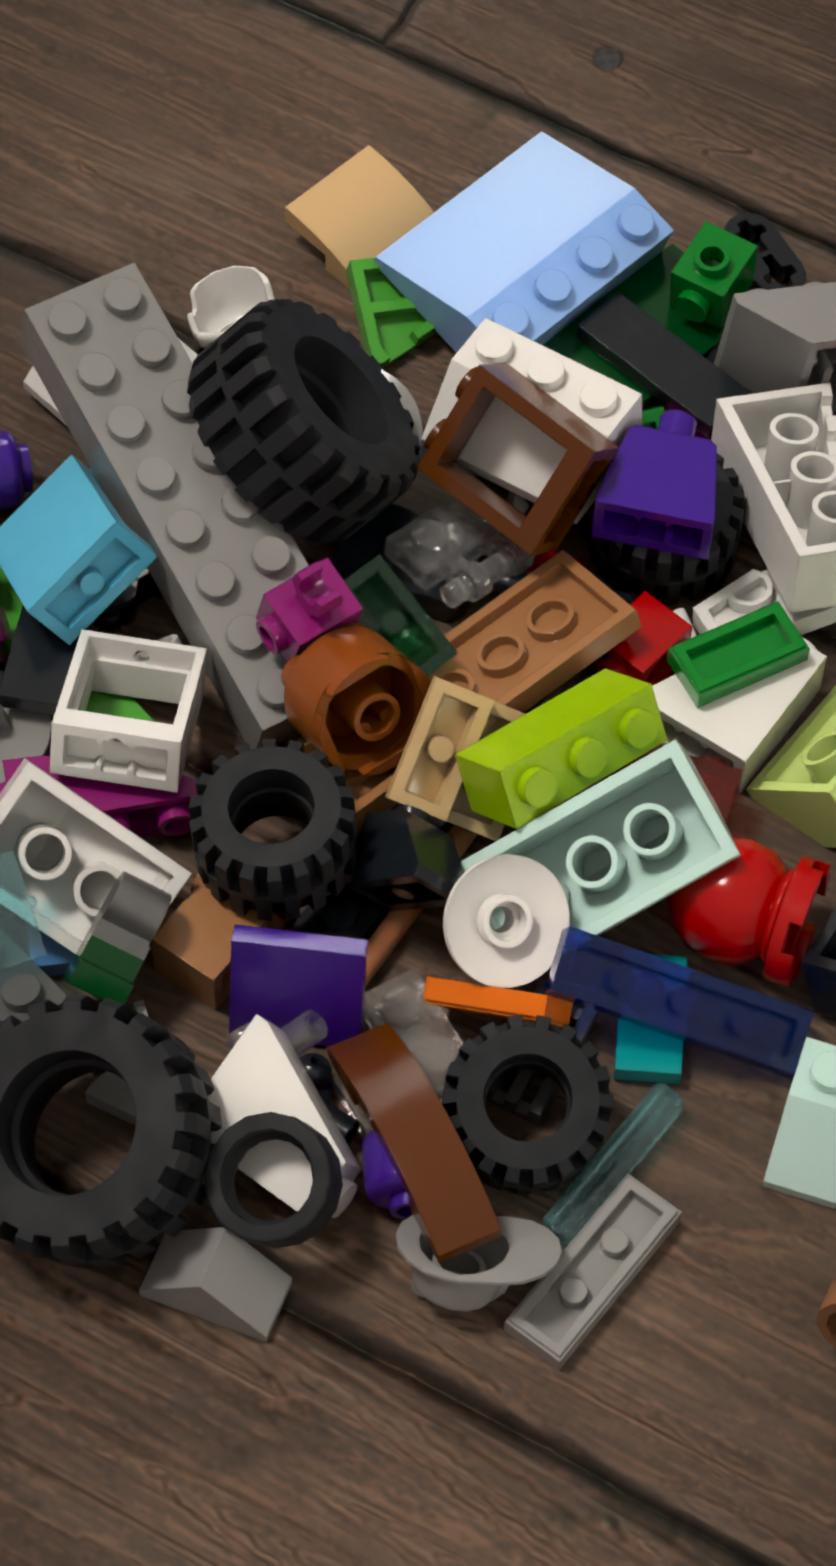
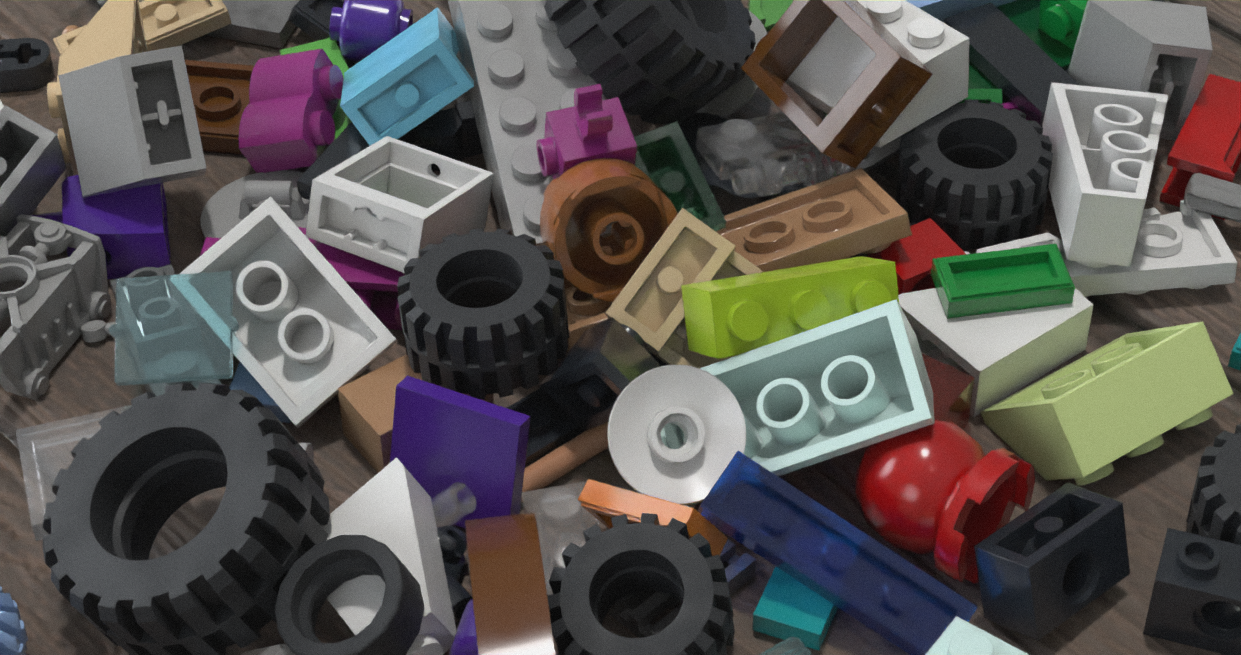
camera: 20 degrees right, 15 degrees down
(119, 939) = (307, 372): leg -> none
(660, 489) = (964, 127): dark purple torso -> none

